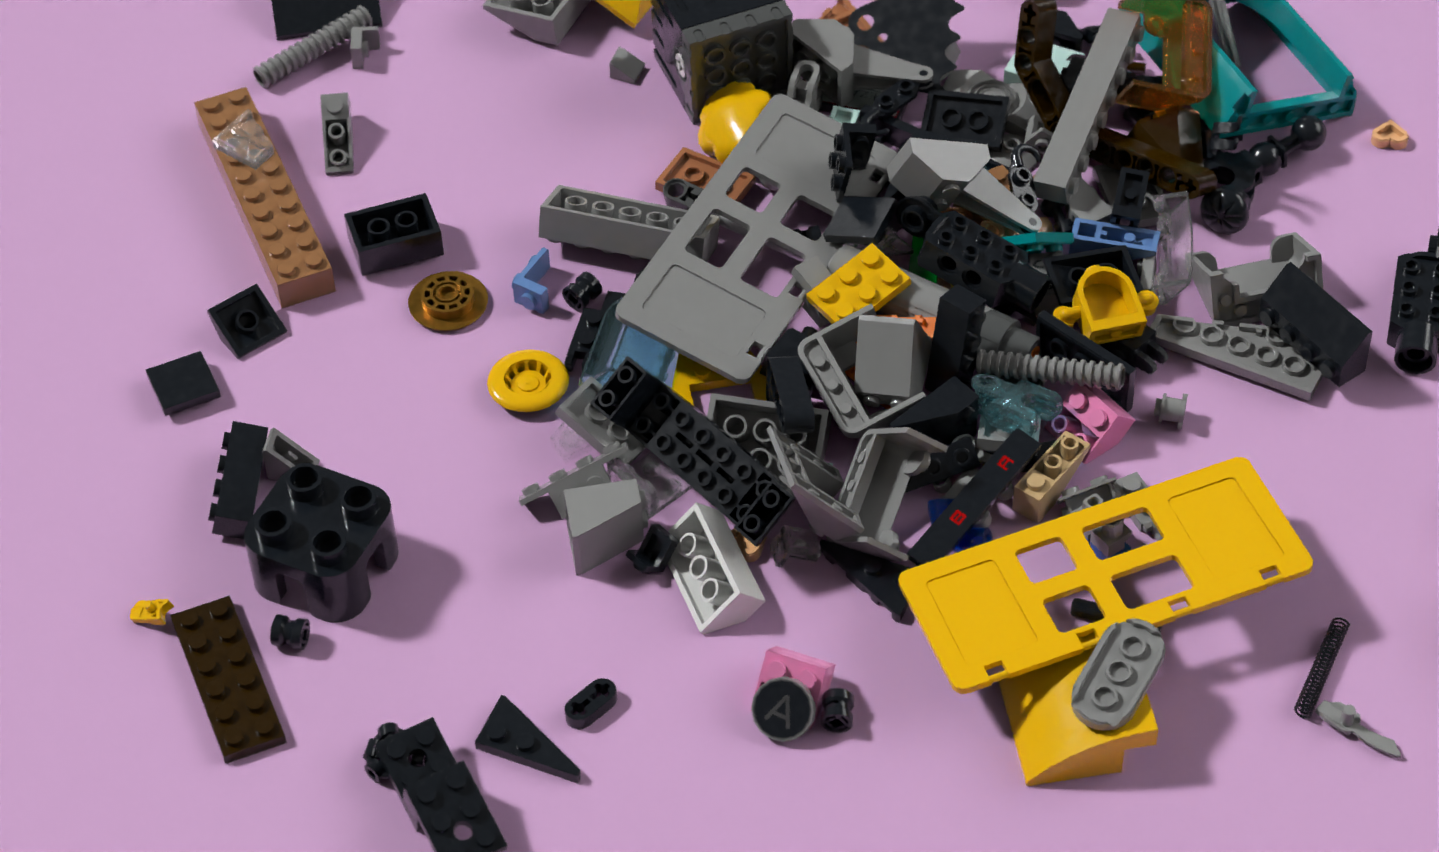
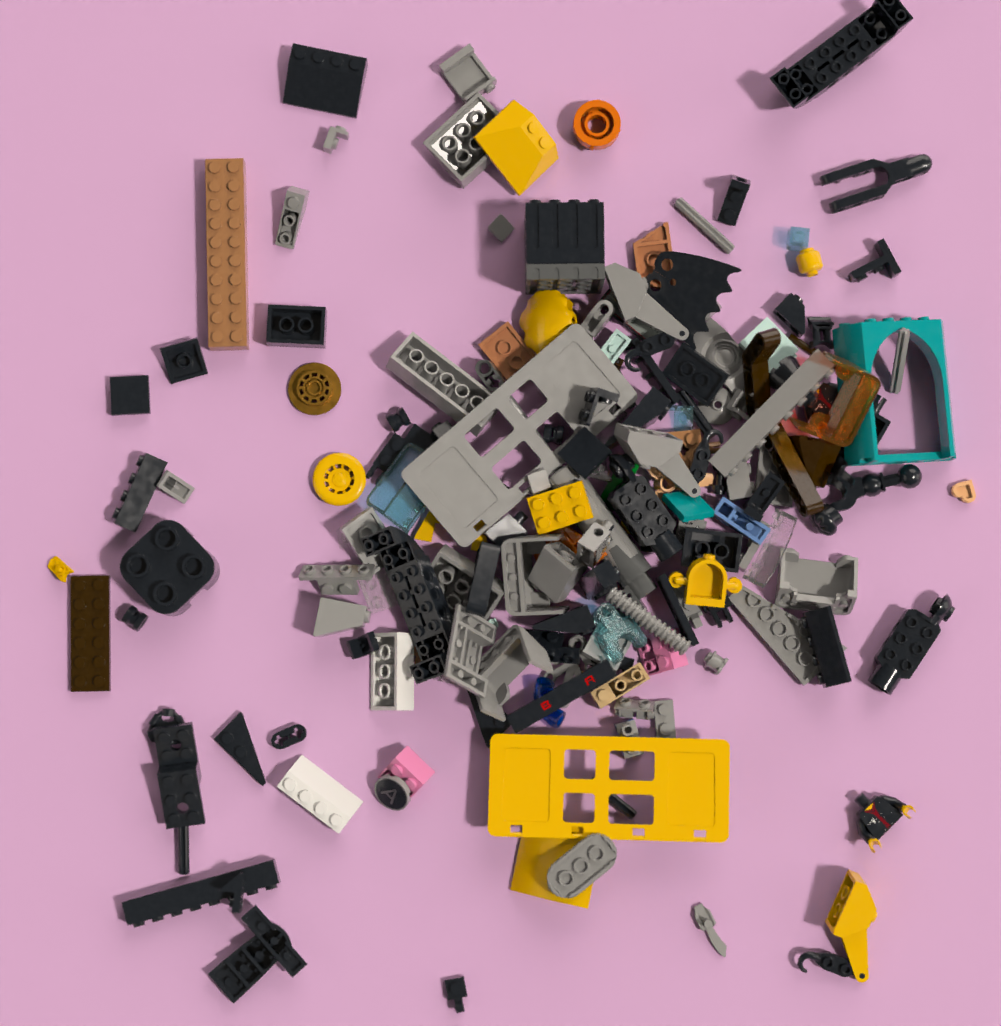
camera: 15 degrees right, 35 degrees up
(245, 141) = (224, 218): clear wing -> none
(311, 47) = (301, 127): light grey piece -> none
(526, 286) = (364, 410): medium blue bracket -> none
(670, 760) = (320, 794): none -> white slope
(837, 710) = (421, 805): black wheel -> none
(923, 293) = (594, 543): none -> light grey torso
(1330, 661) = (709, 882): black piece -> none

